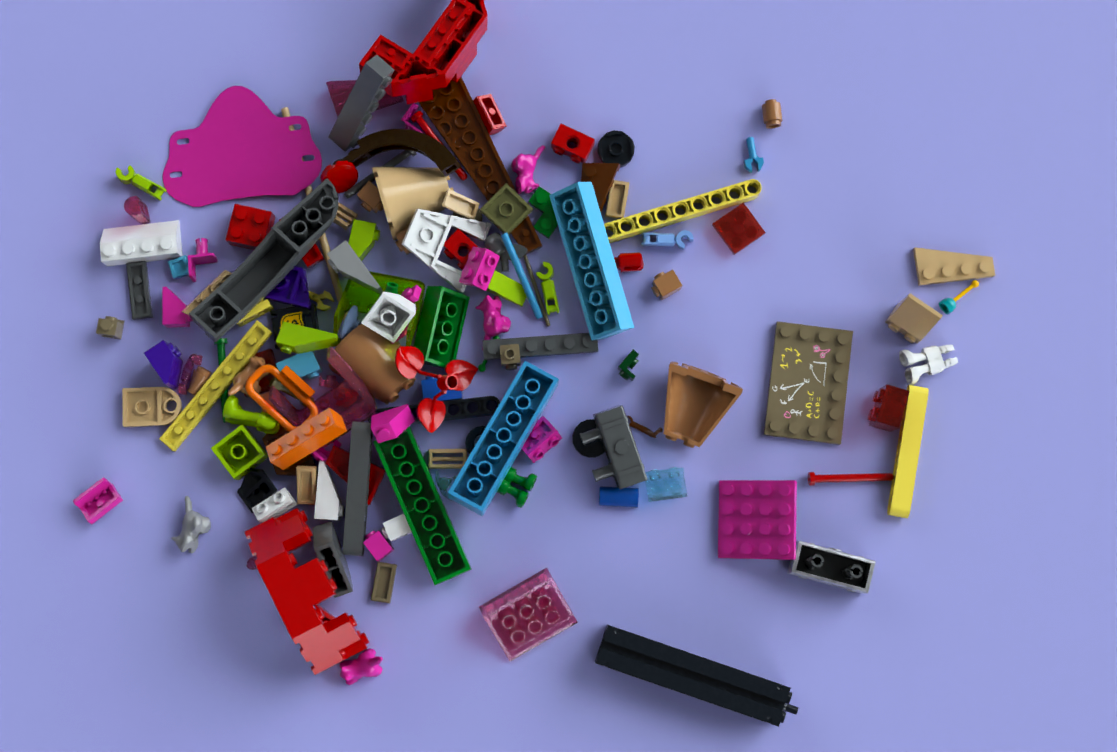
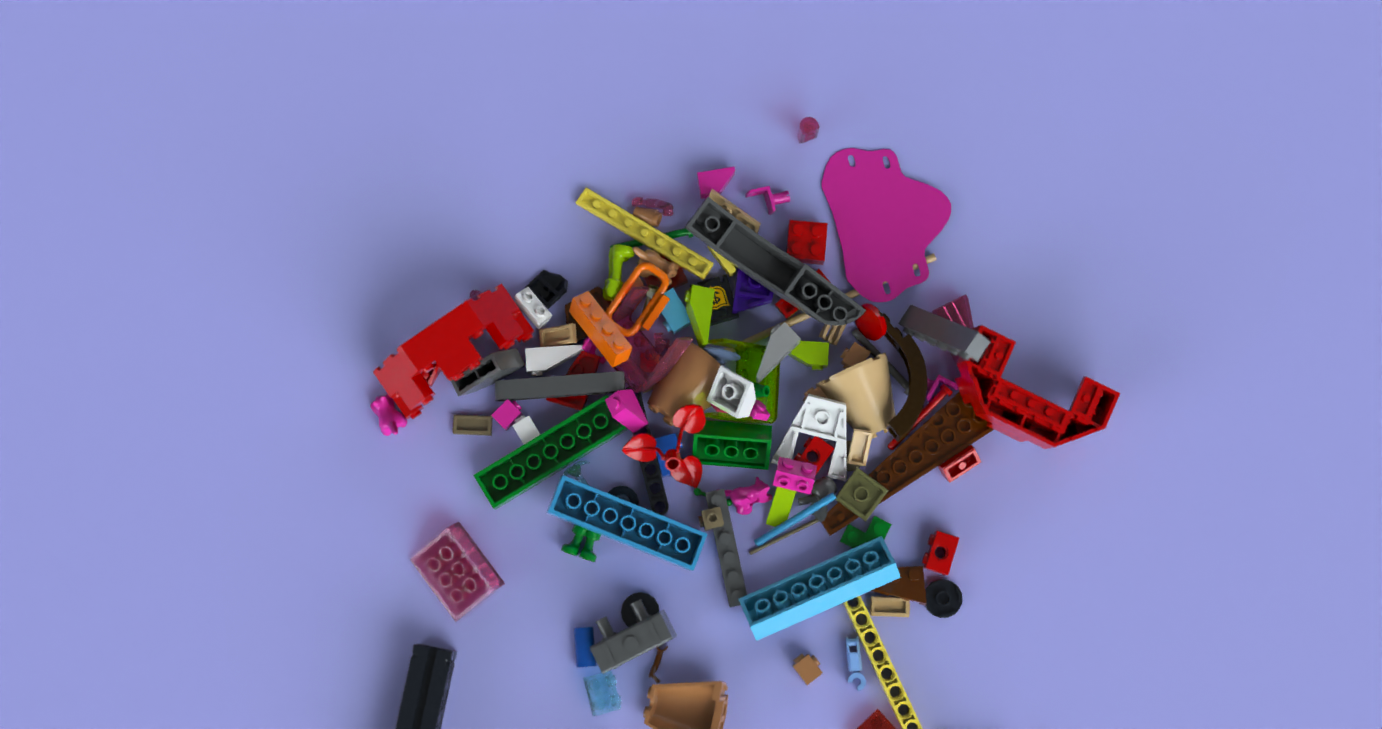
camera: 80 degrees right, 0 degrees up
(98, 500) = (518, 139): dark pink bracket -> none
(110, 327) = (688, 123): dark tan brick -> none
(139, 290) = (730, 144): dark grey tile -> none
(140, 182) = (837, 128): lime piece -> none
(141, 243) = (777, 138): white slope -> none
(149, 406) = (616, 172): tan plate -> none
(166, 362) = (659, 182): dark purple slope -> none
(179, 267) = (758, 179): medium azure tile -> none
(192, 526) = (503, 232): light grey animal -> none
(239, 452) = (581, 266): lime brick -> none
(315, 297) = (746, 318): light yellow bar -> none
(446, 466) = (599, 454): tan tile -> none
(524, 167) = (908, 507): dark pink animal -> none
(541, 440) = (632, 561): dark pink bracket -> none
(548, 288) = (786, 548): lime piece -> none
(629, 262) = (825, 627): red arm -> none
(629, 362) = (722, 641): dark green bracket -> none

